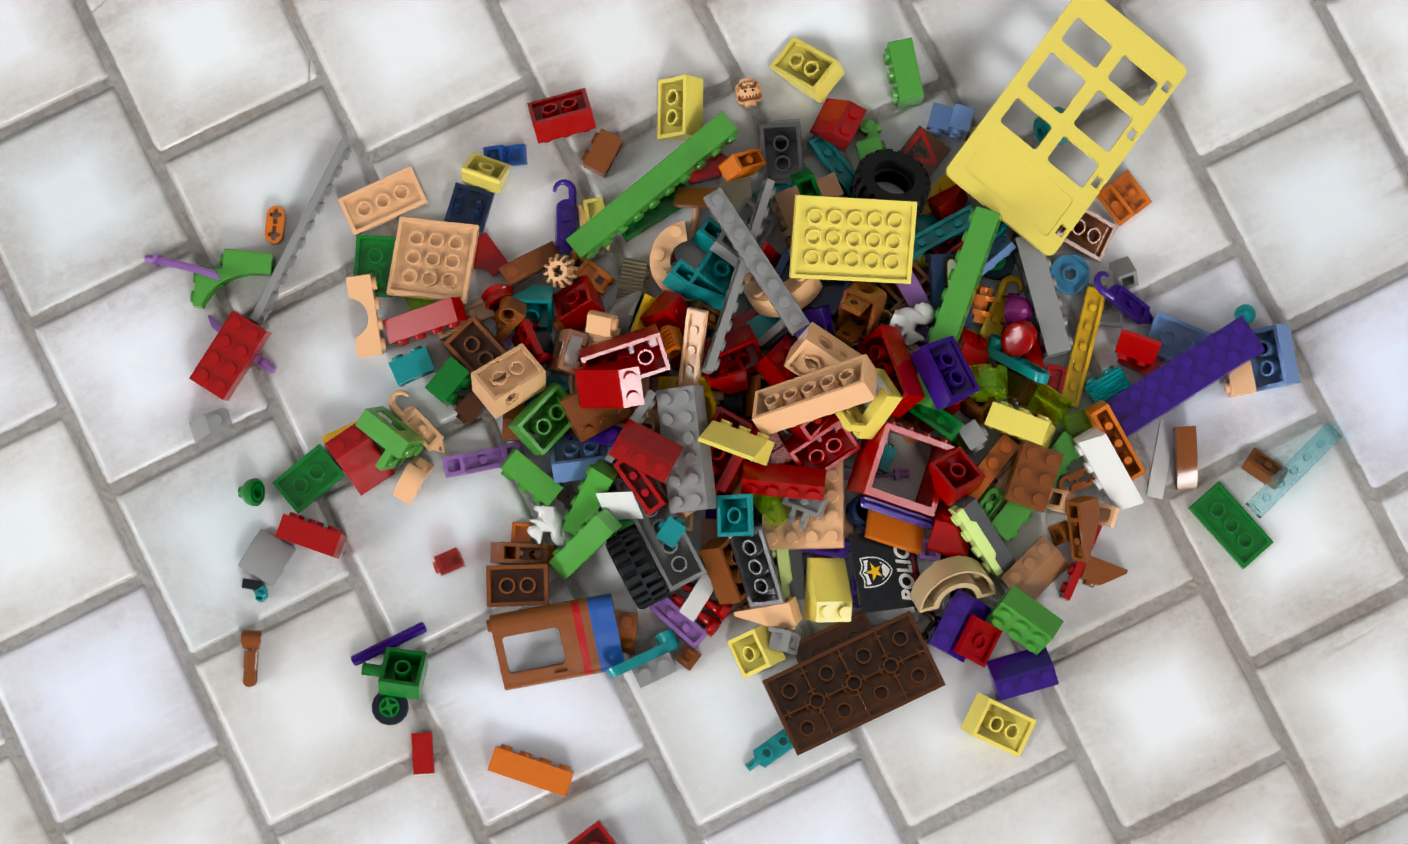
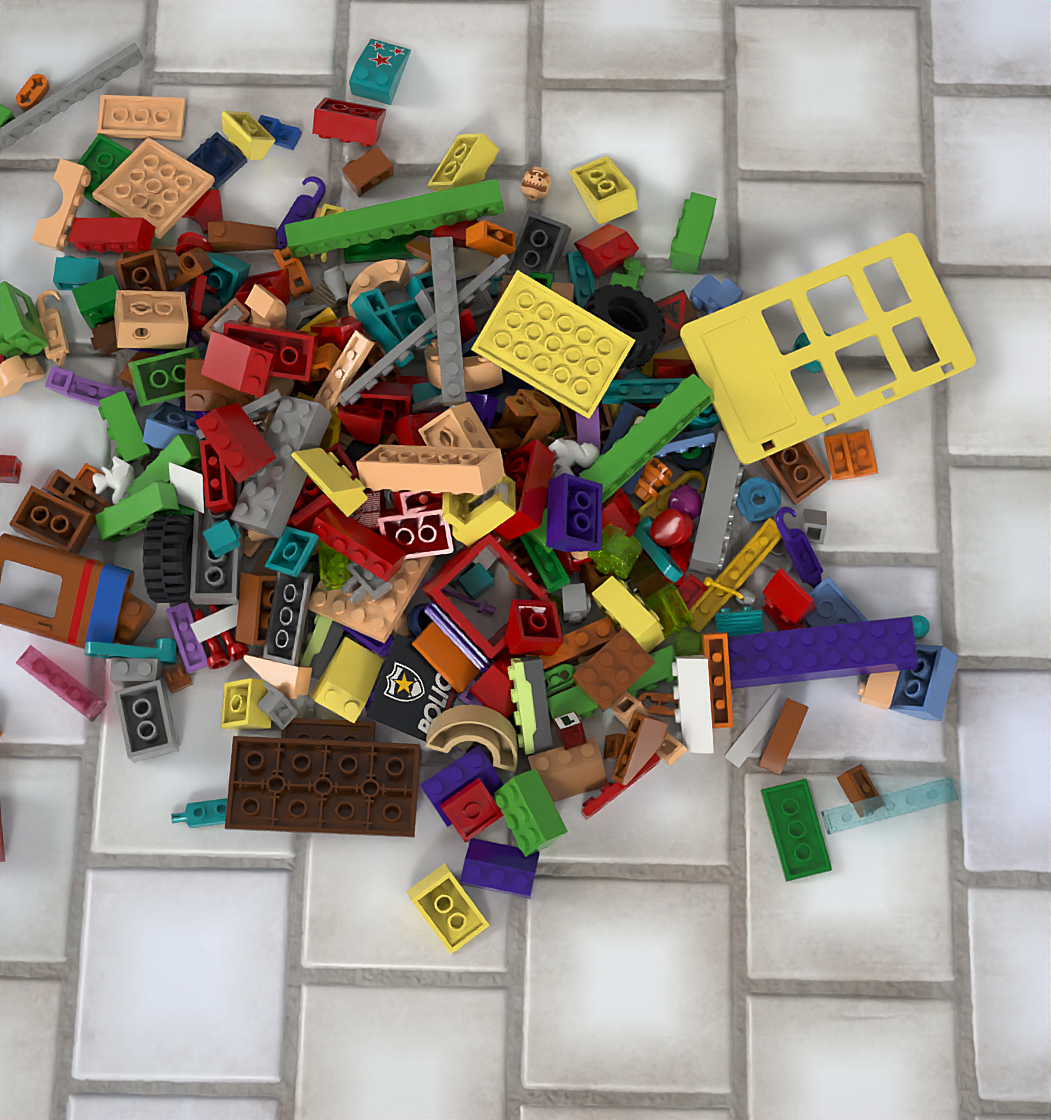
camera: 30 degrees right, 10 degrees down
(561, 55) = (379, 71): none -> teal slope
(565, 265) = (265, 253): light nougat gear -> none
(601, 710) = (61, 683): none -> clear pink brick
(636, 268) = (336, 283): none -> light grey cone
(686, 704) = (146, 721): none -> light grey brick
(933, 618) = (441, 765): dark brown piece -> none
(1022, 540) = (570, 730): none -> clear red brick
(1099, 360) = (744, 596): none -> hinge
(1100, 572) = (634, 806): dark orange slope -> none

